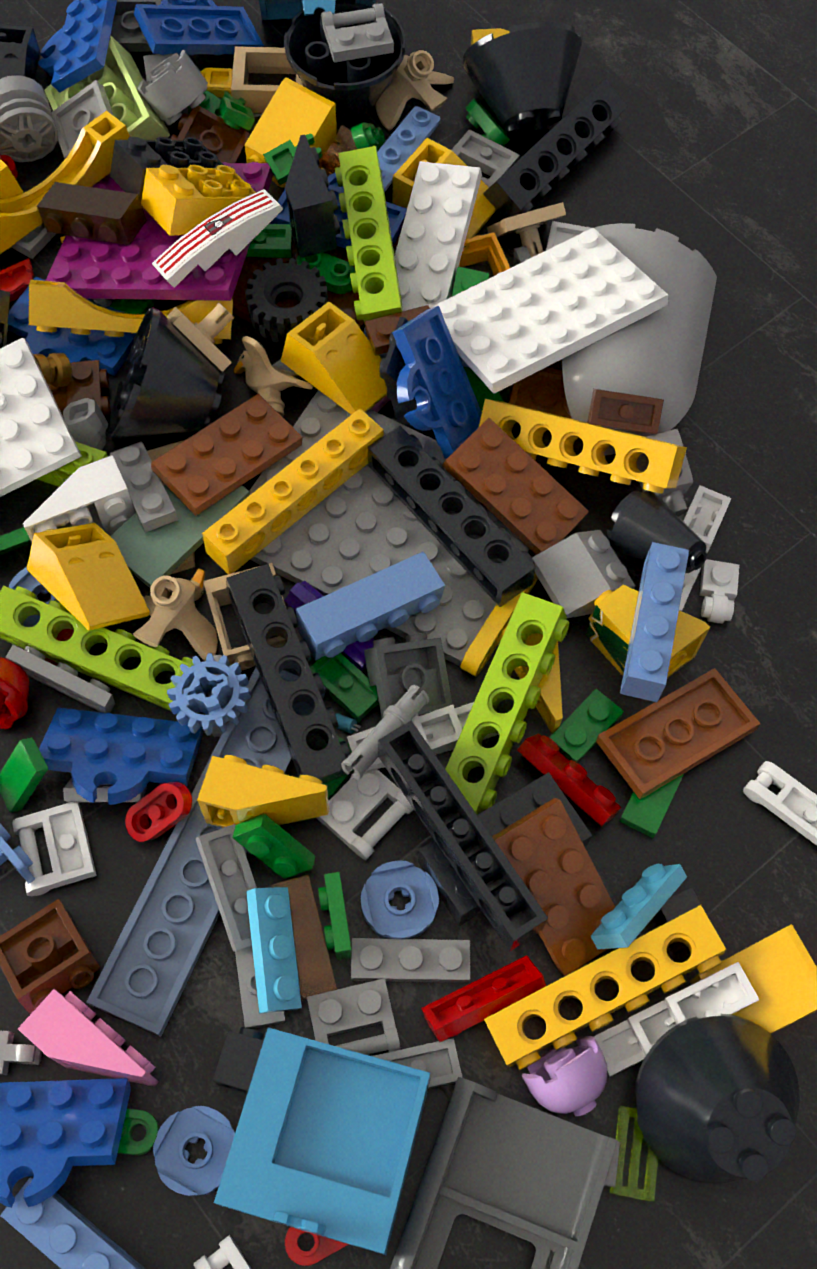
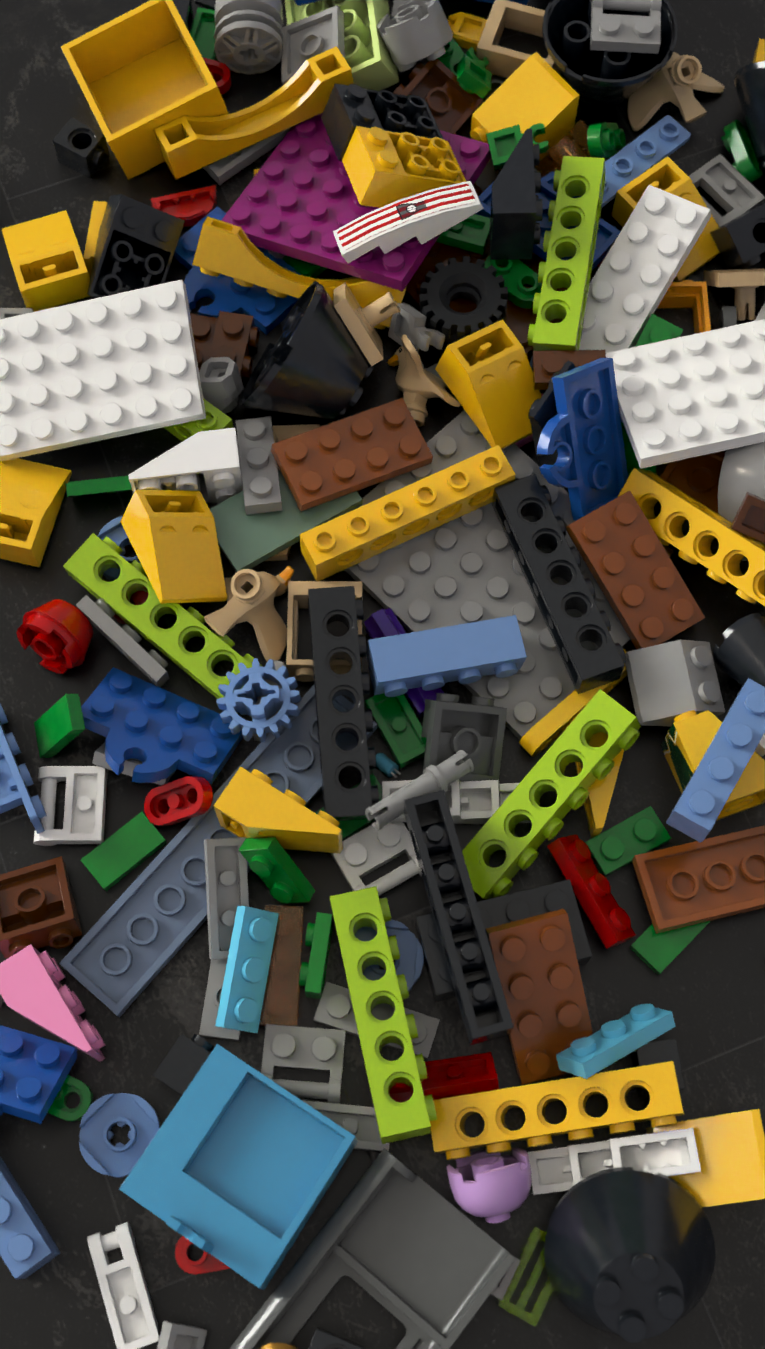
camera: 20 degrees right, 5 degrees up
(55, 368) = (205, 316): pearl gold wheel -> none
(92, 213) = (290, 157): dark brown brick -> none
(118, 876) = (123, 851): none -> green tile
(249, 326) = (412, 323): none -> light grey plate
(458, 1043) = (394, 1119): none -> lime brick

